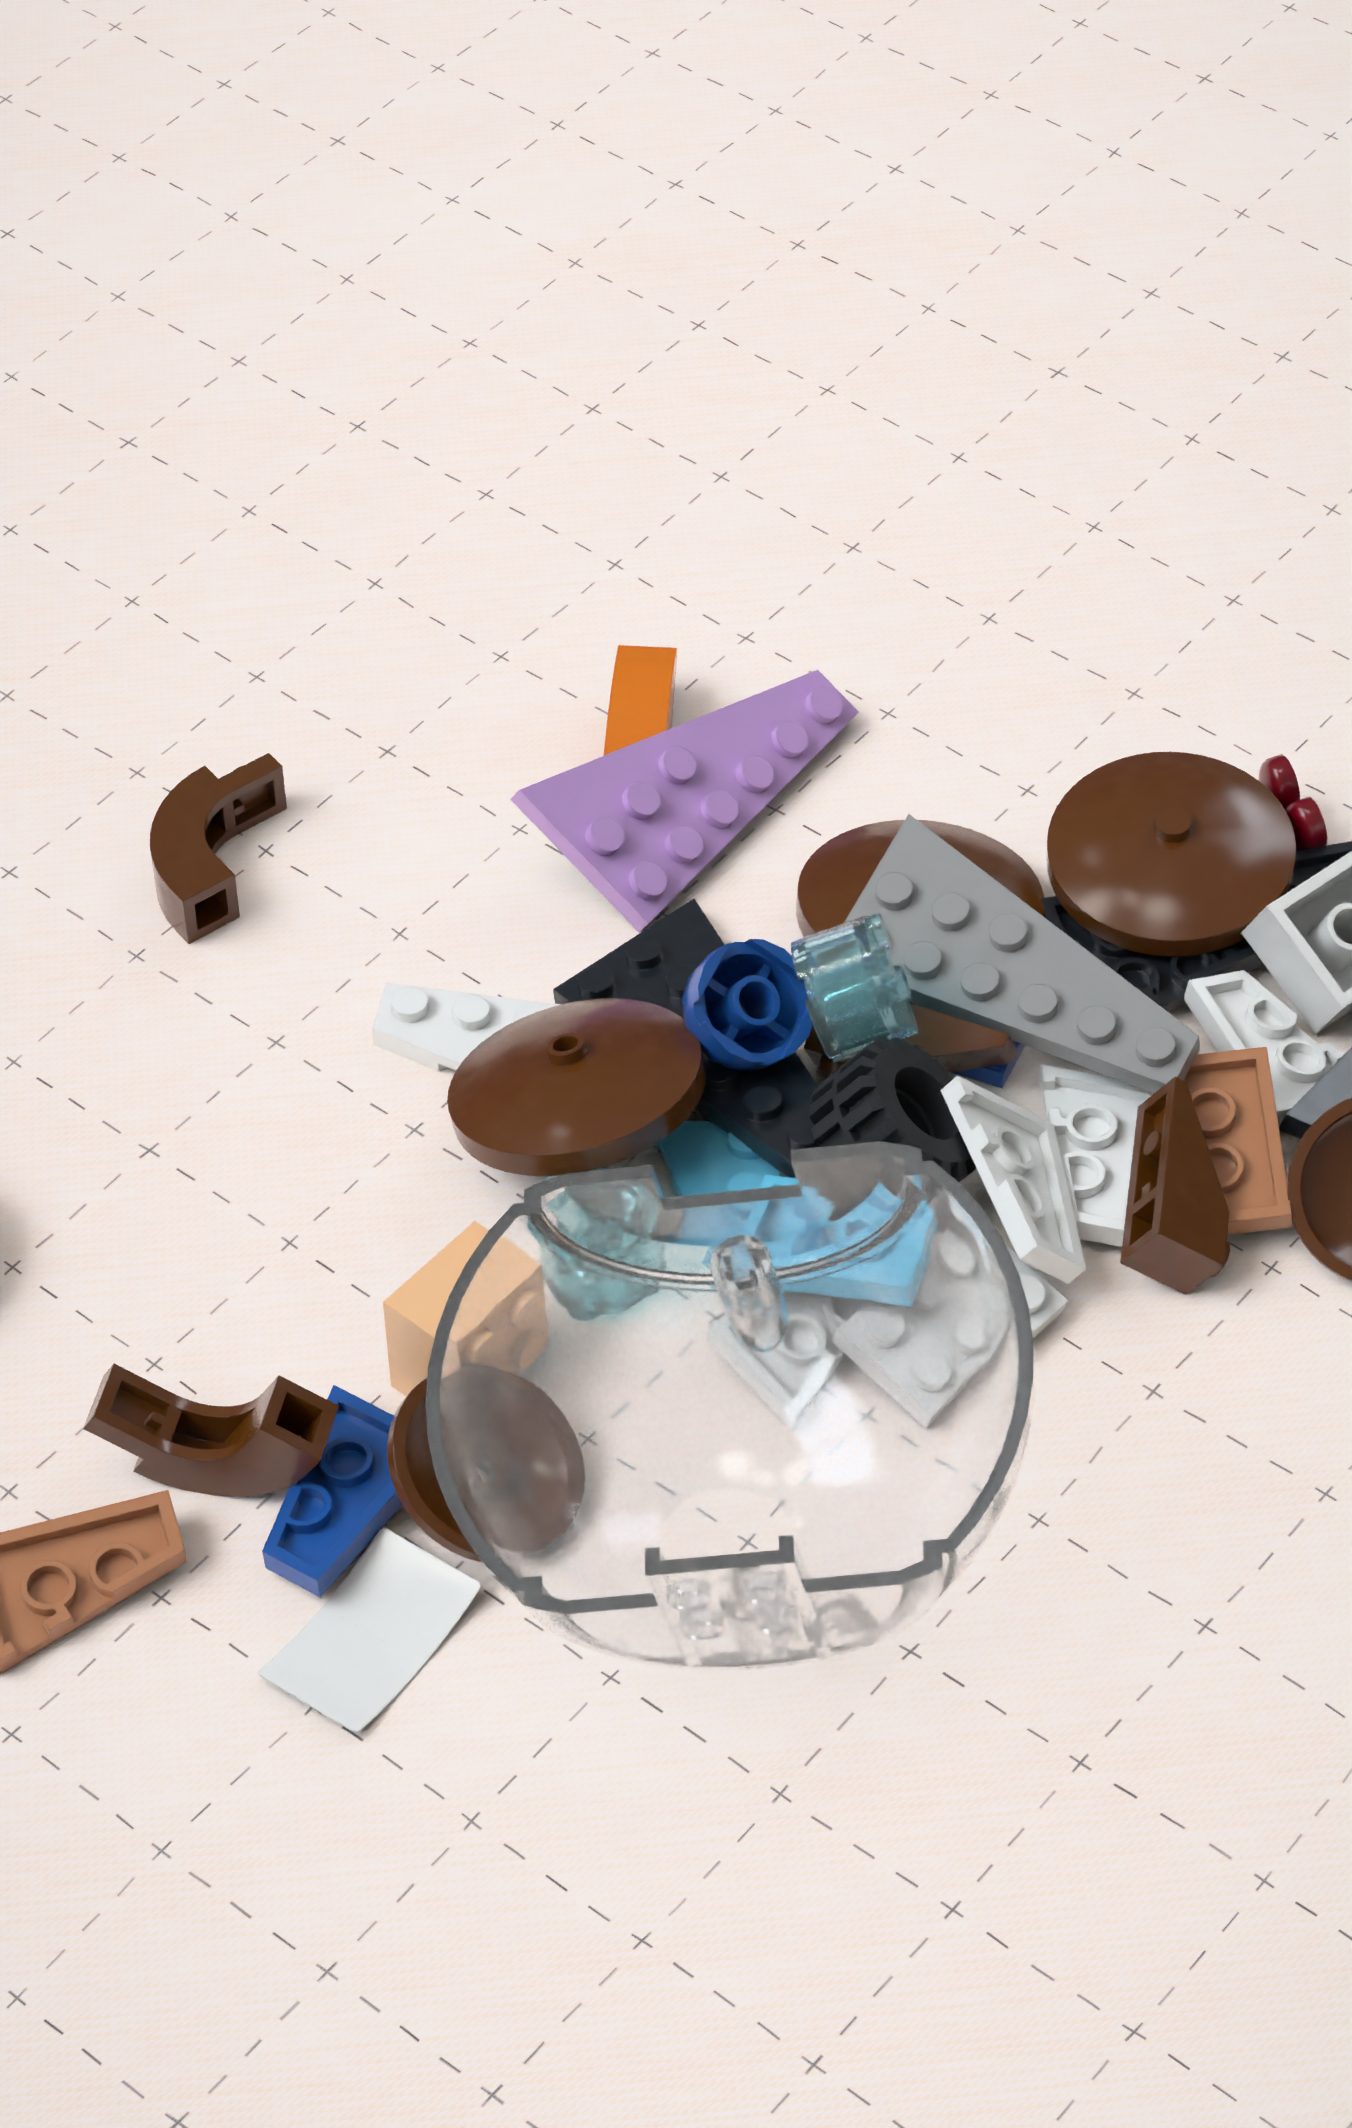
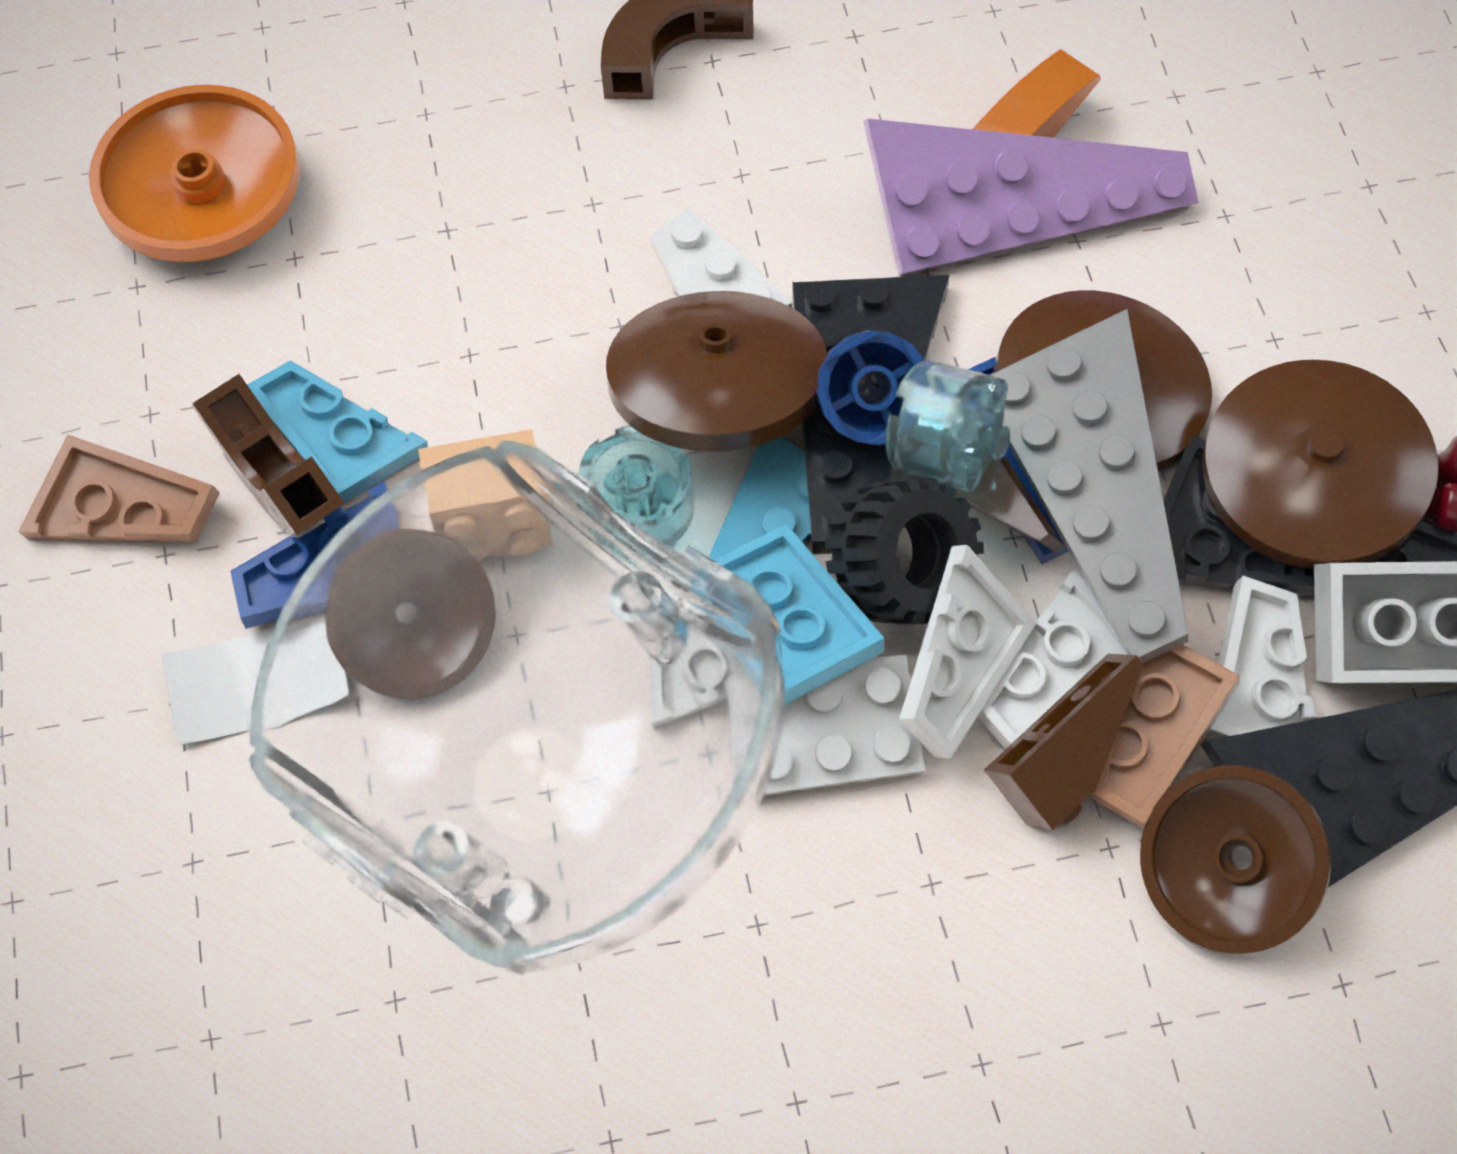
camera: 40 degrees right, 15 degrees up
(234, 1371) = (344, 439): none -> medium azure wing

